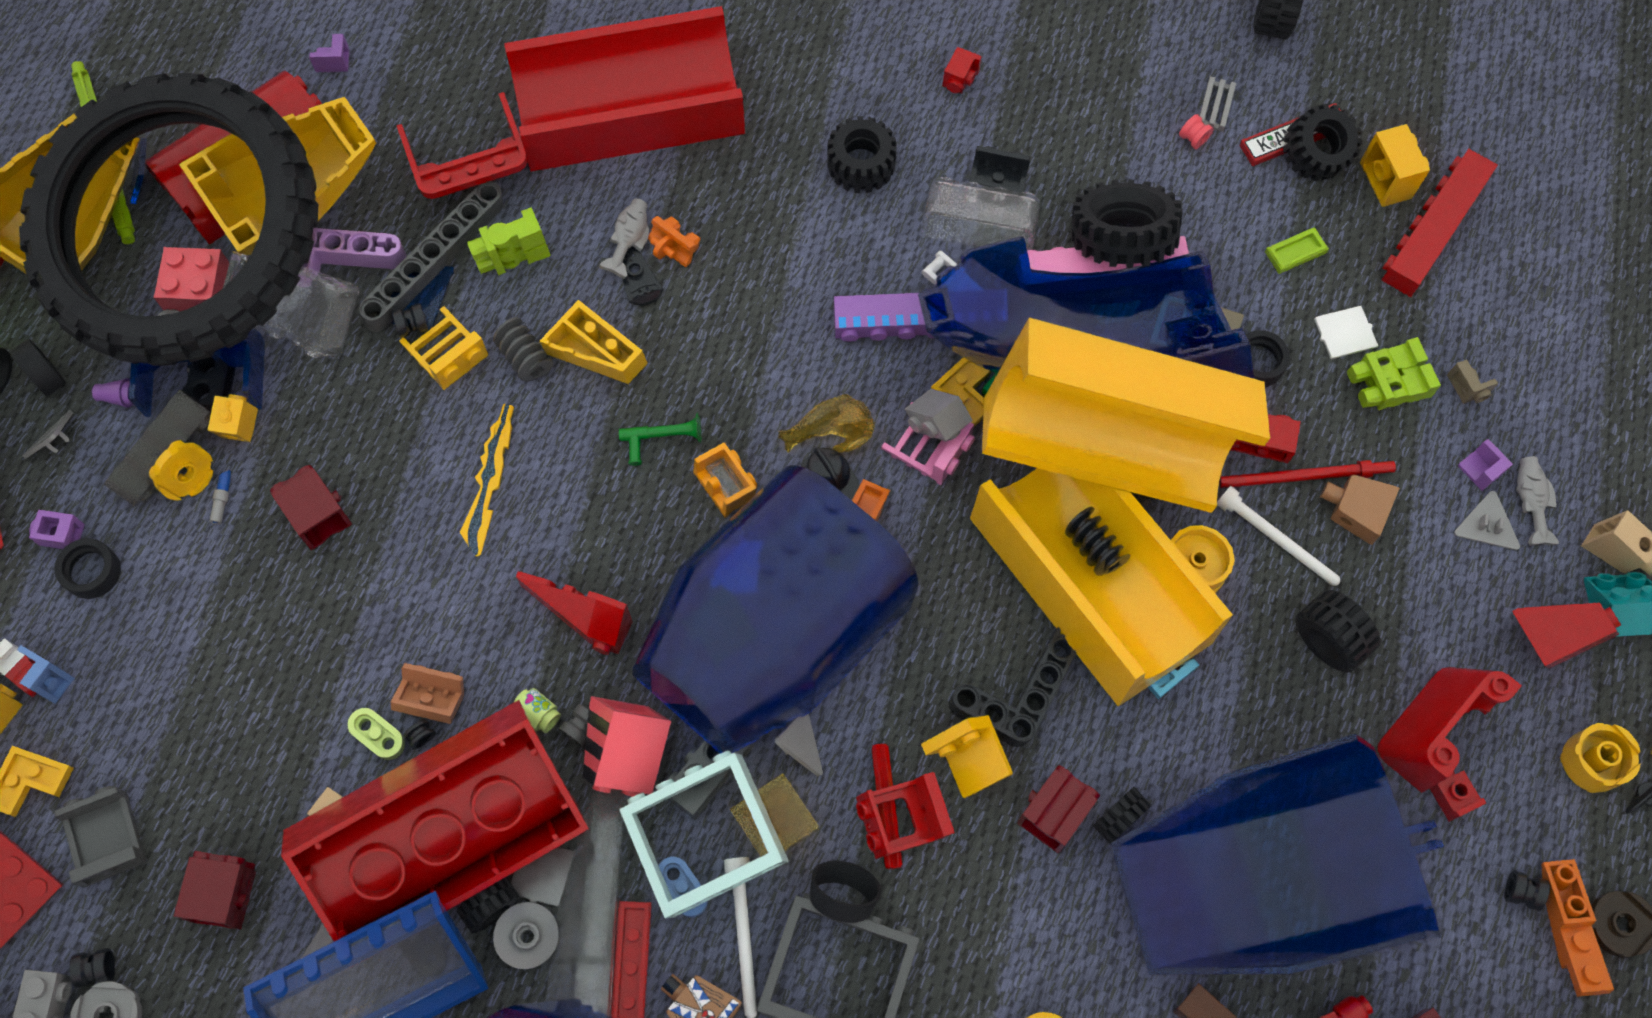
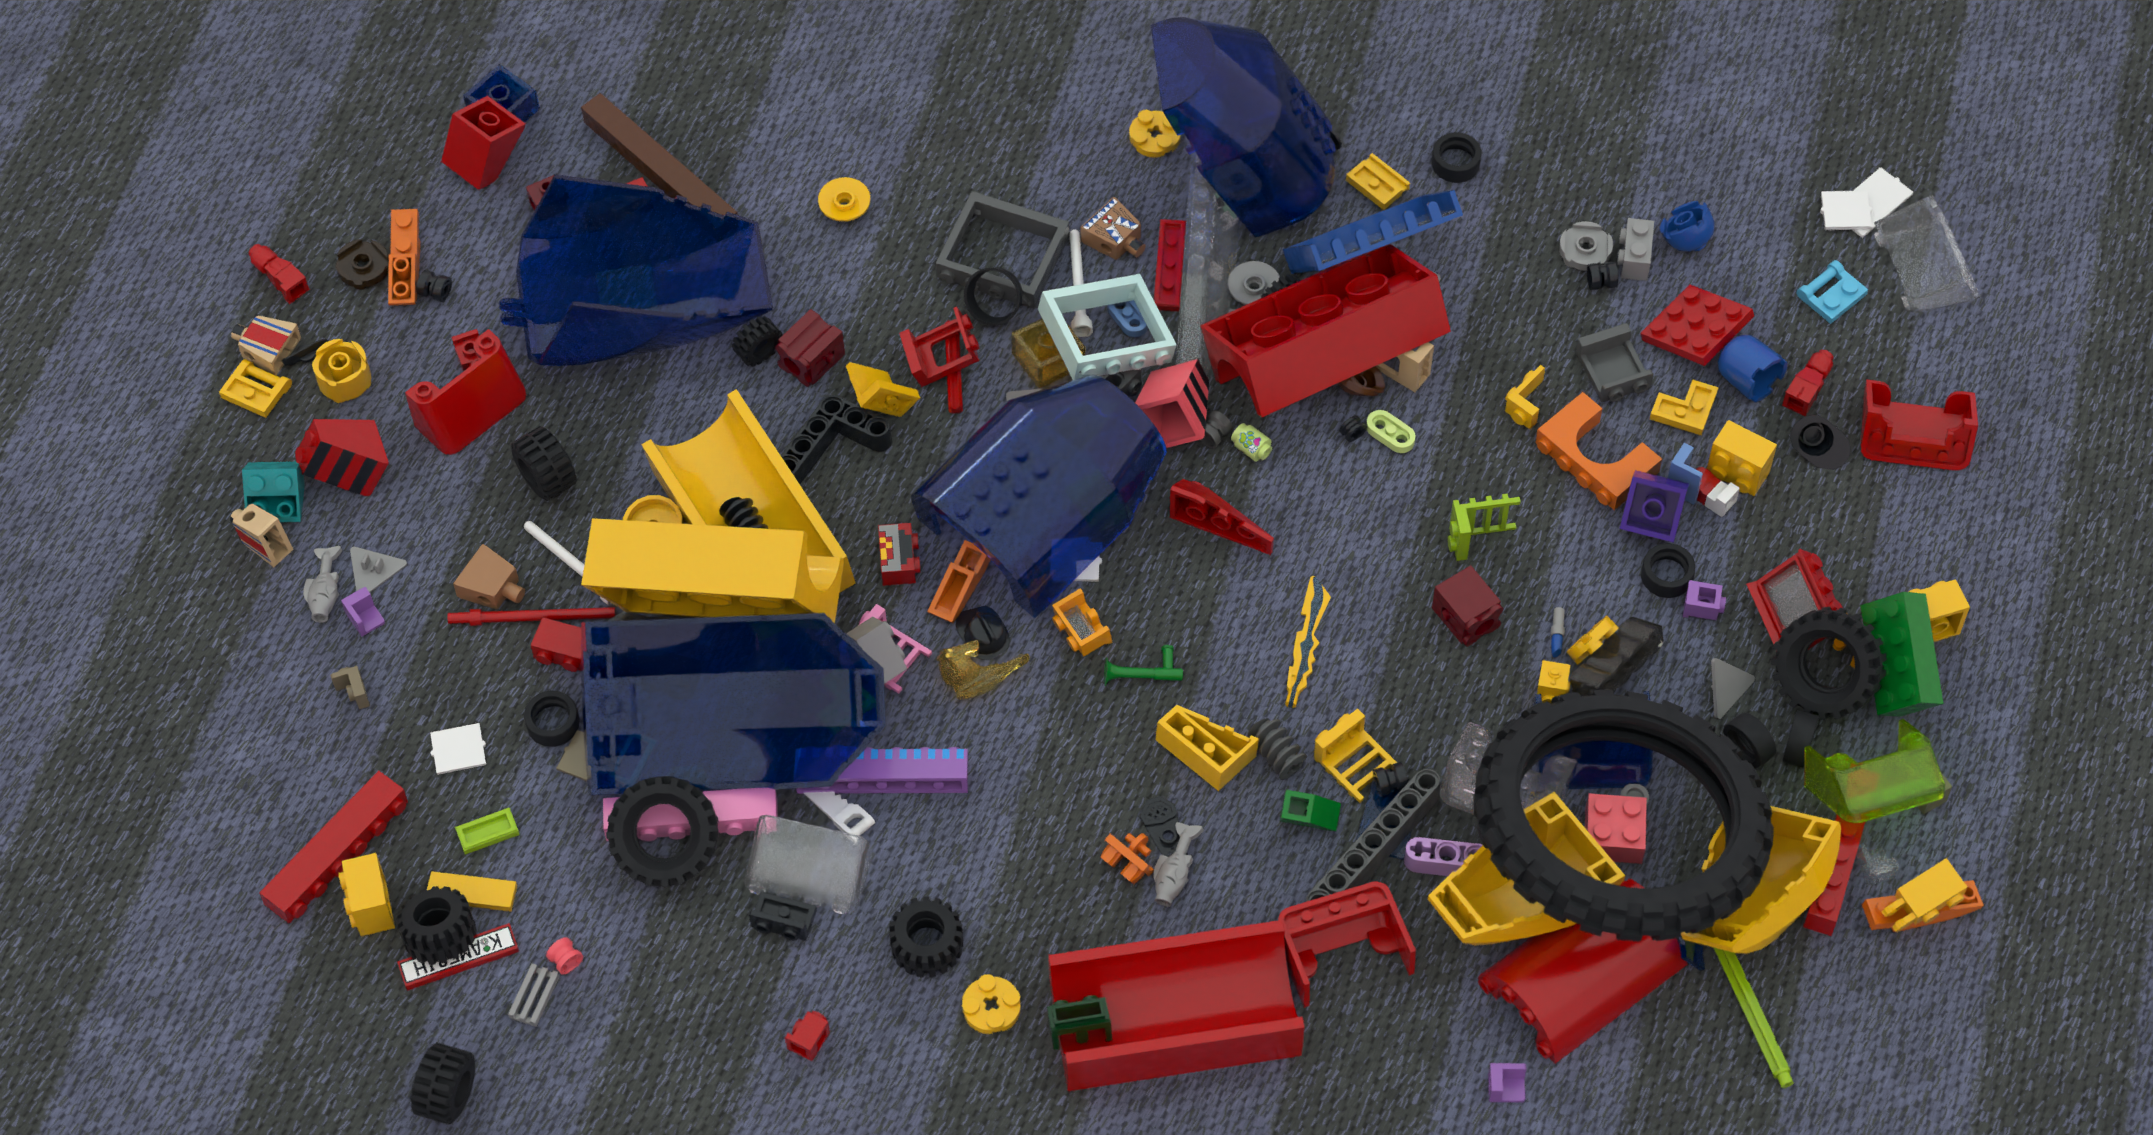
camera: 175 degrees left, 10 degrees down
(83, 629) = (1654, 506): none -> dark purple brick
(178, 728) = (1608, 481): none -> orange arch
(215, 890) = (1508, 316): dark red piece -> none
(221, 786) = (1517, 406): none -> yellow bracket
(302, 604) = (1463, 522): none -> lime plate
(428, 693) = (1347, 456): nougat bracket -> none
(497, 285) = (1309, 810): none -> green slope
(509, 244) = (1293, 846): lime hips -> none
(707, 80) = (1078, 1018): none -> dark green window
(793, 95) = (987, 989): none -> yellow plate
(928, 551) = (897, 554): none -> brick
(1297, 193) = (479, 891): none -> yellow tile
(1395, 376) = (425, 695): lime hips -> none

